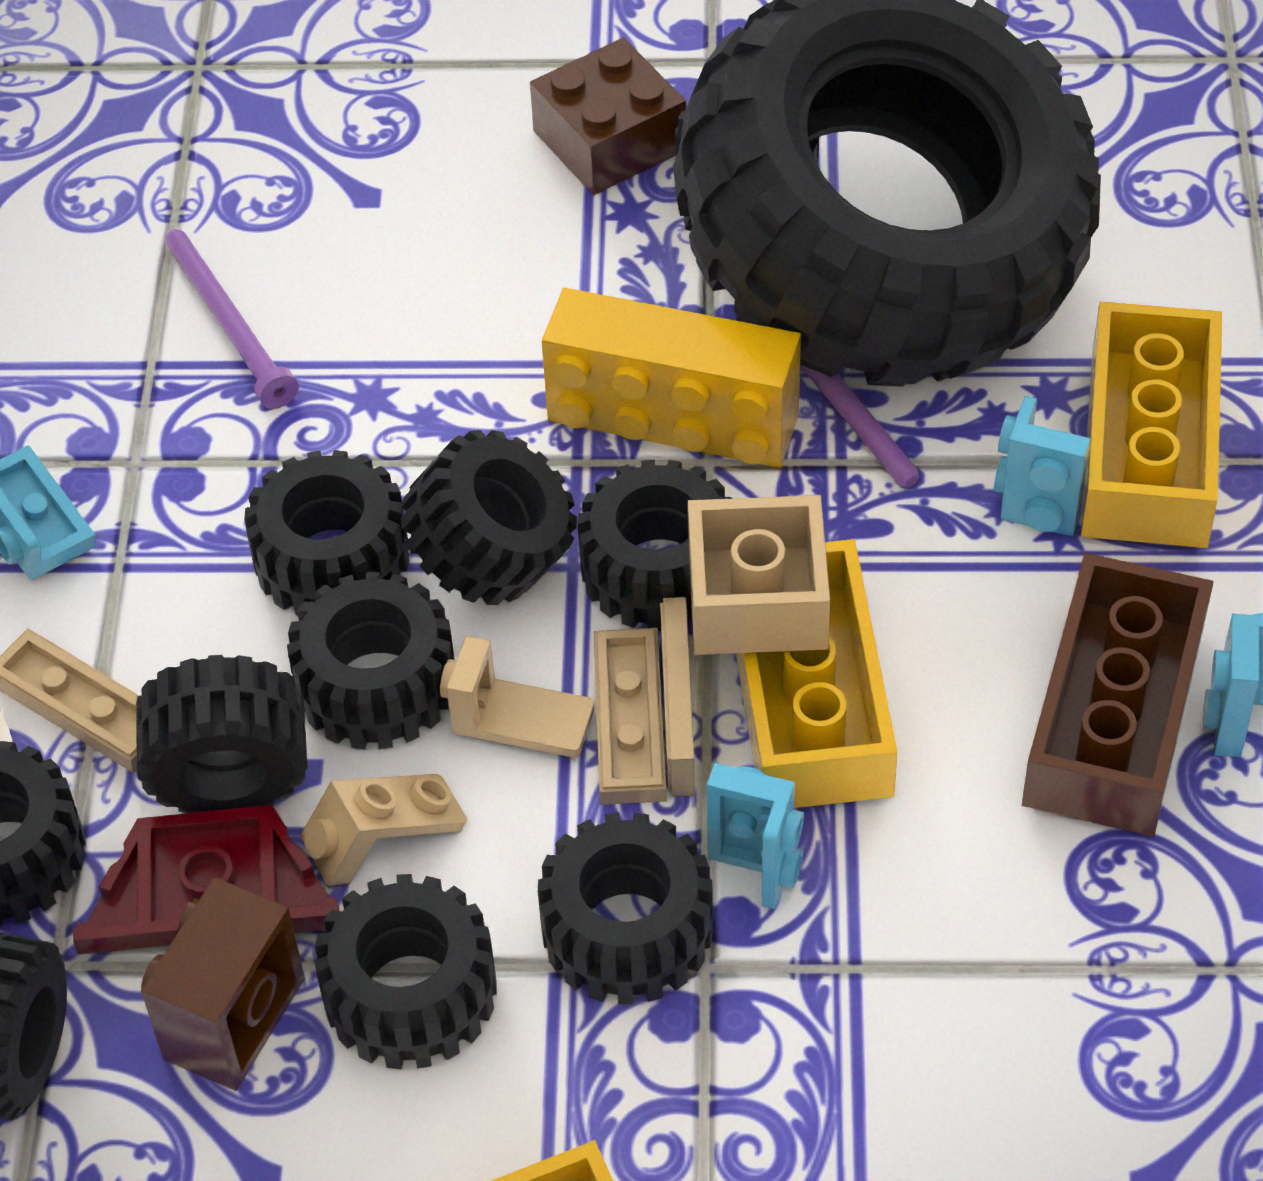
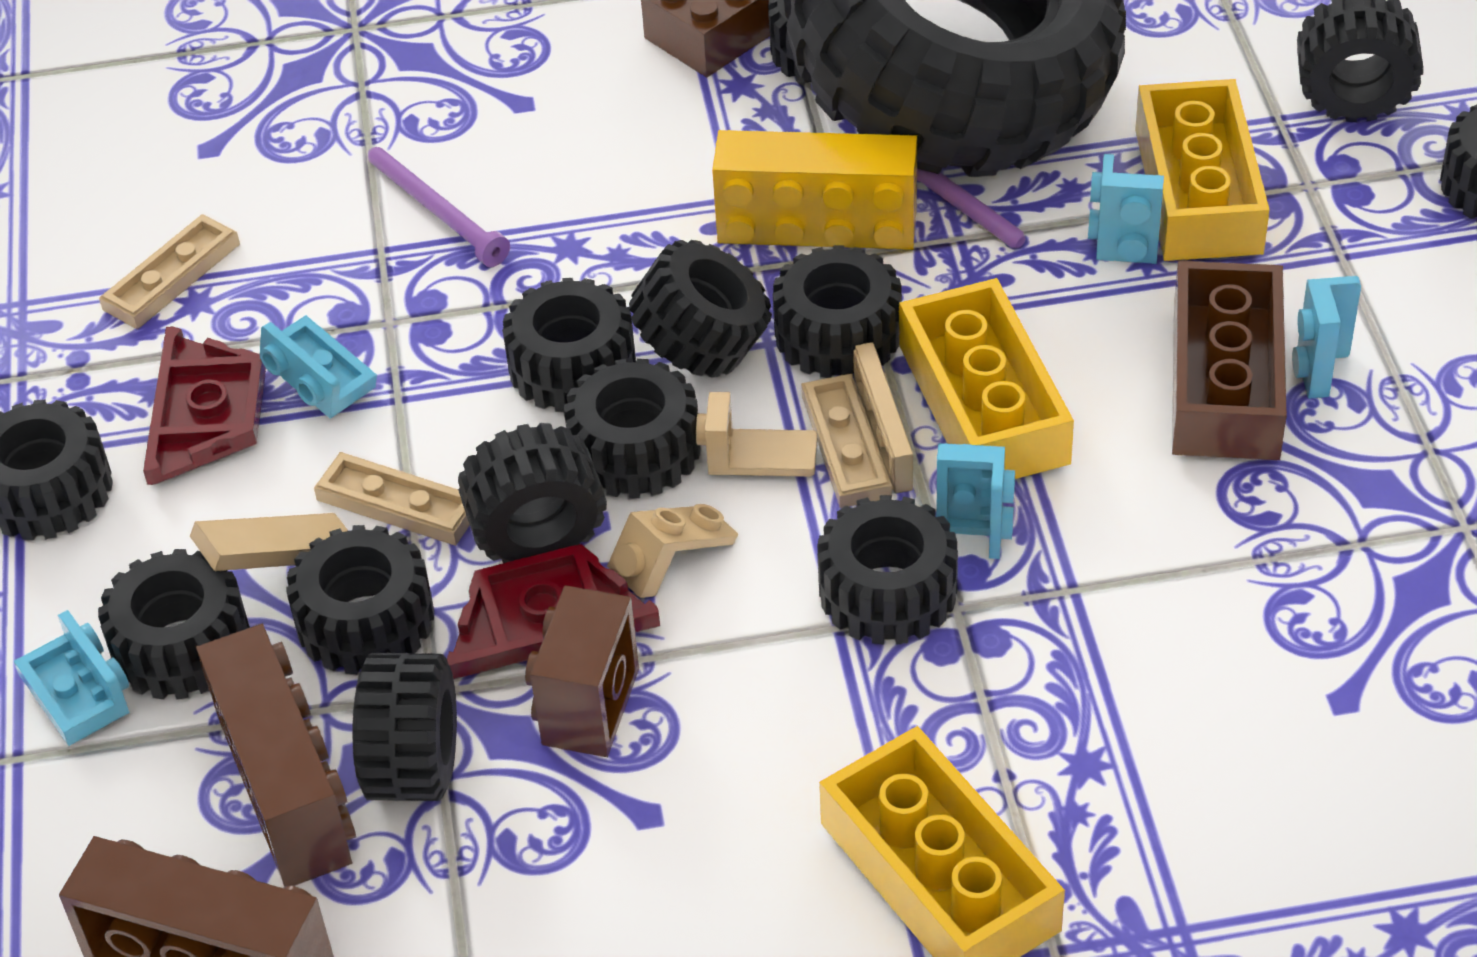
camera: 10 degrees left, 5 degrees down
(395, 924) = (730, 676): black tyre -> none
(758, 575) = (935, 306): tan brick -> none

